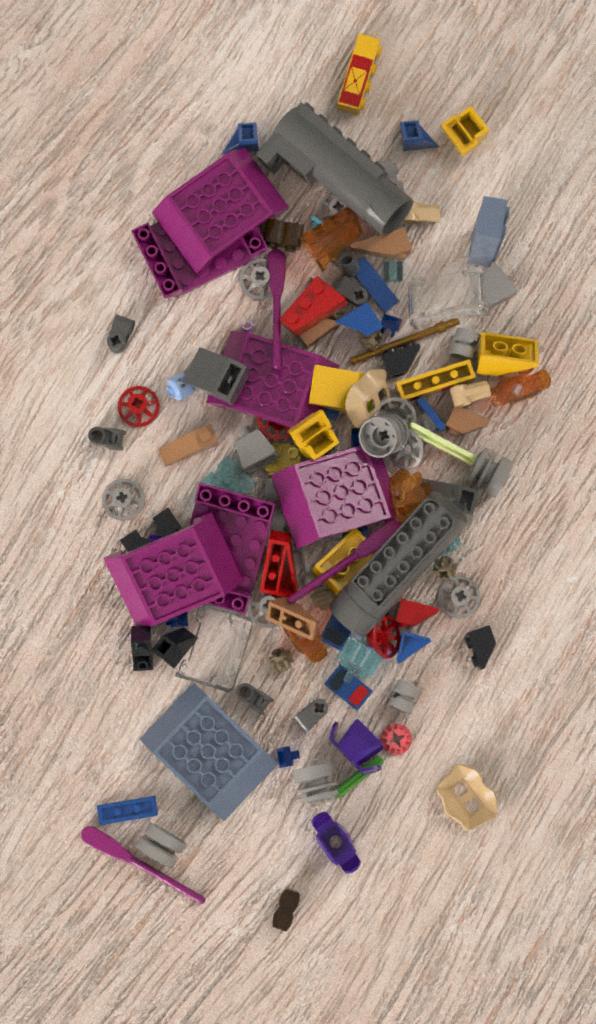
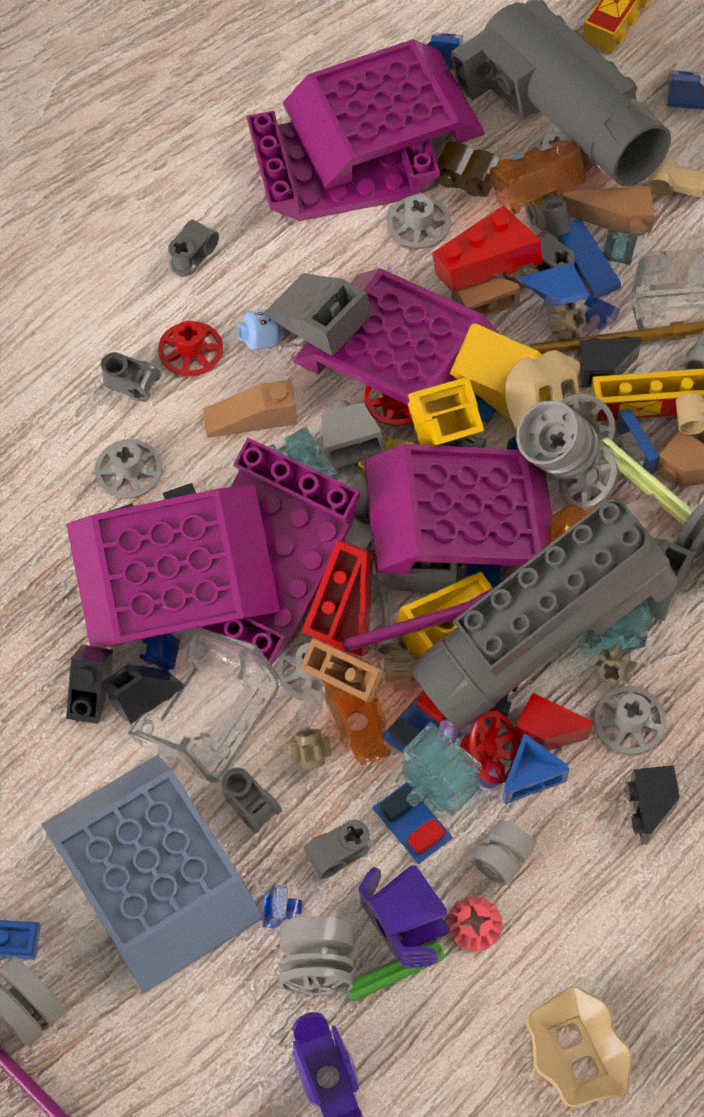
camera: 15 degrees right, 20 degrees down
(277, 269) = (446, 211): magenta piece -> none

